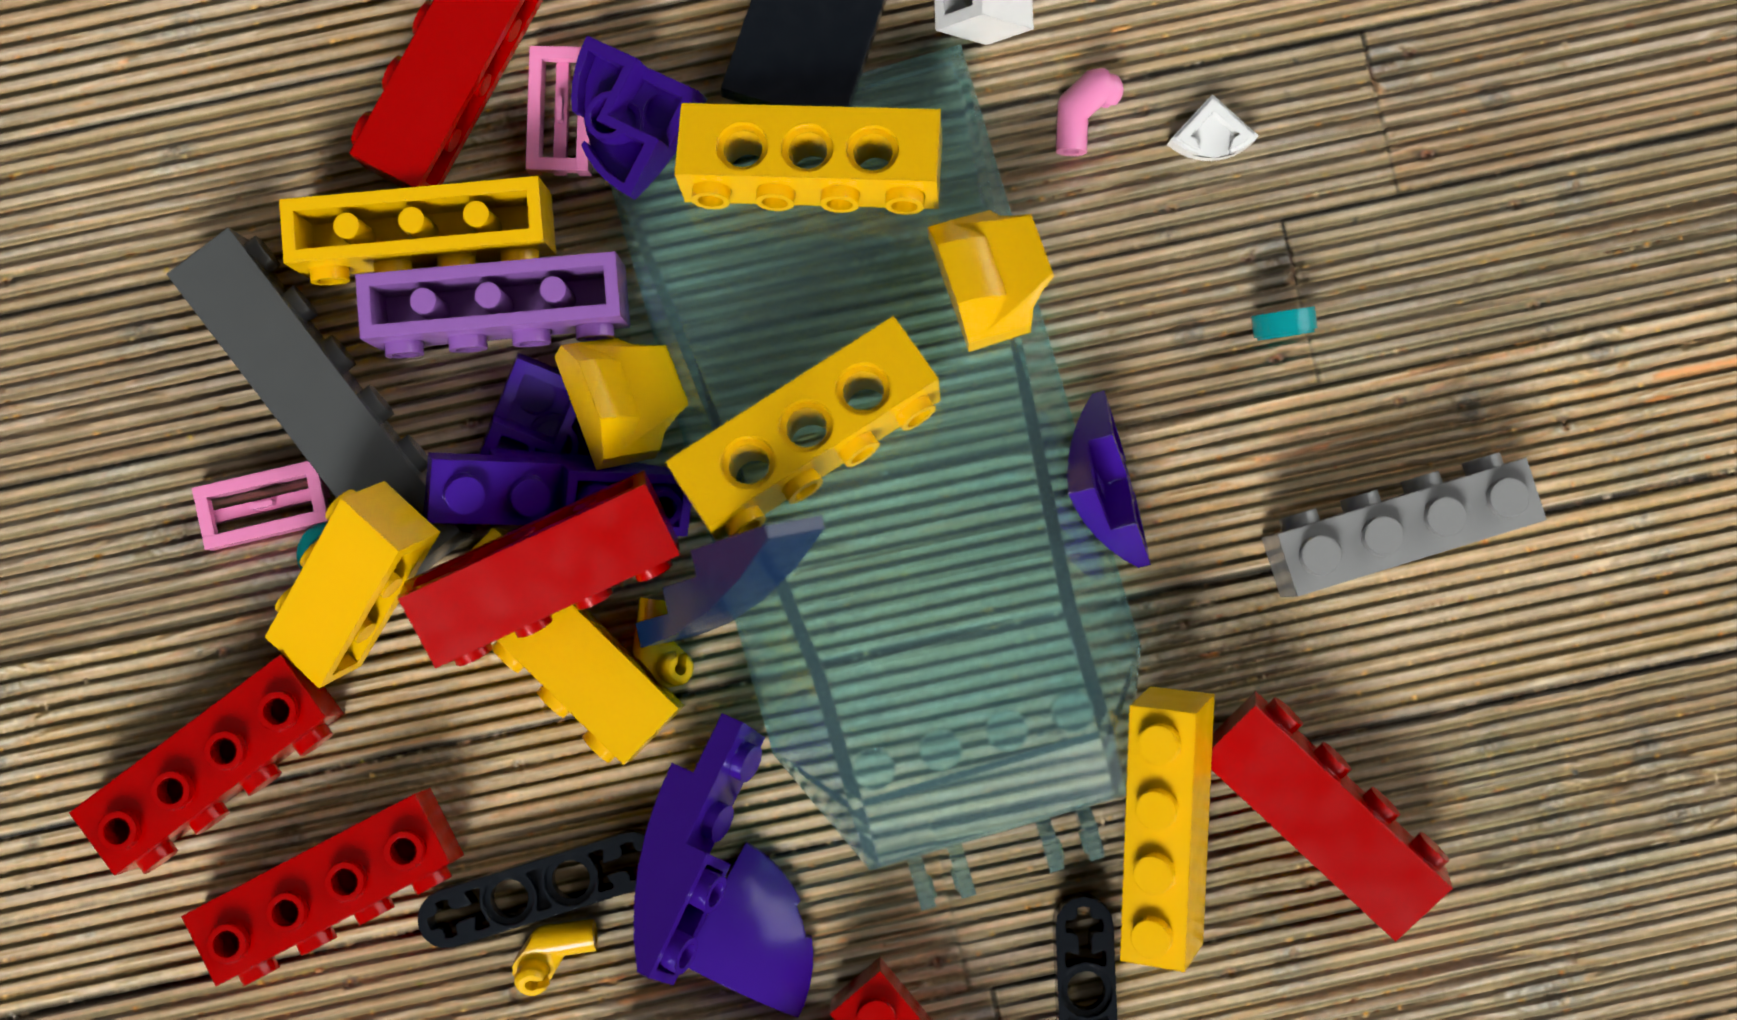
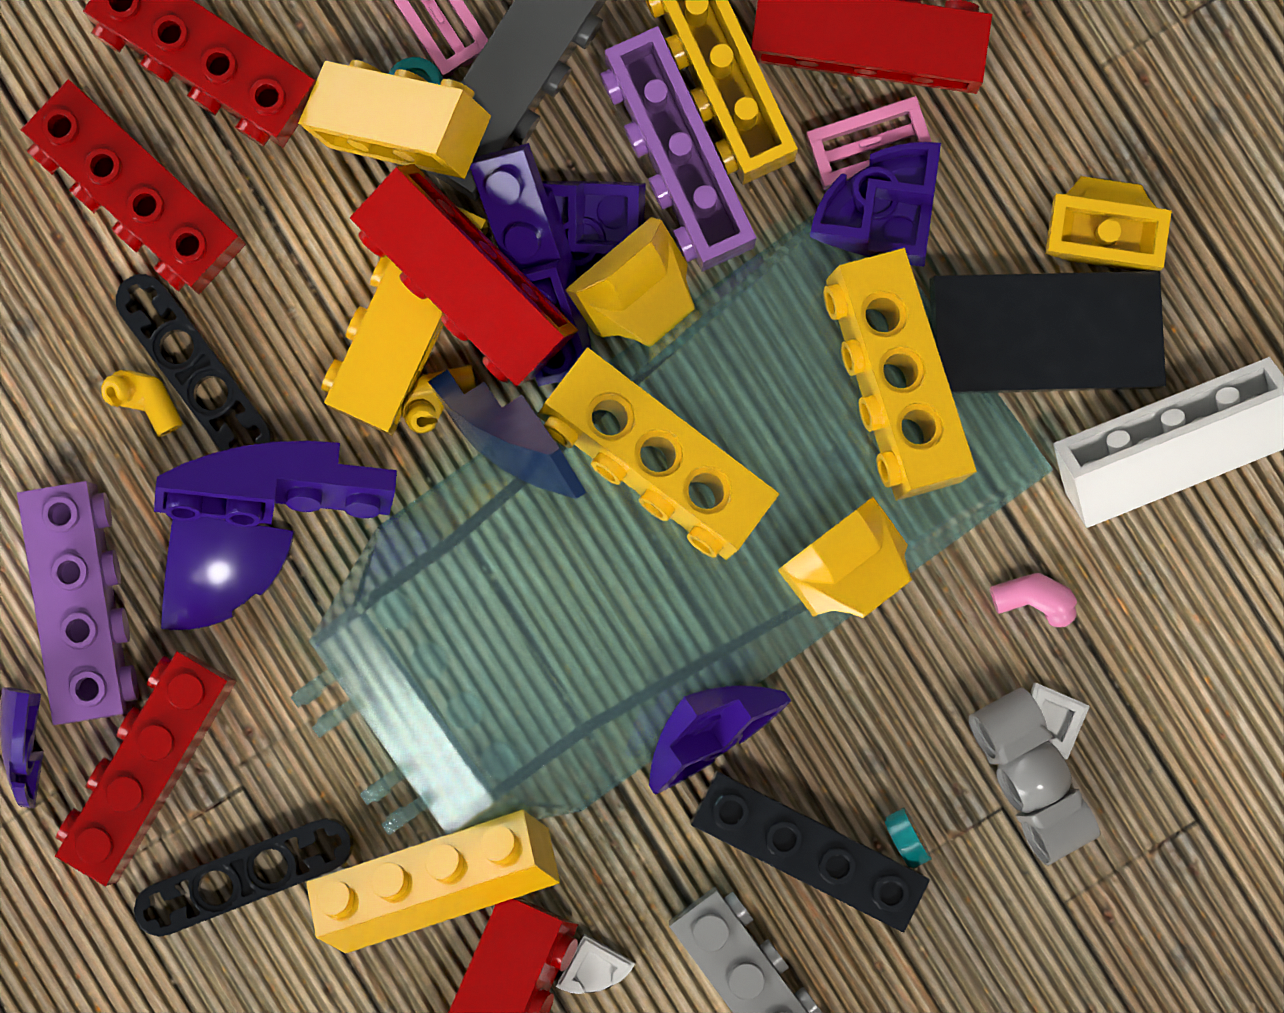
camera: 70 degrees right, 0 degrees up
(1265, 426) = (809, 851): none -> black brick
(1266, 172) = (1034, 776): none -> light grey piece
(1305, 689) = (594, 968): none -> white tile

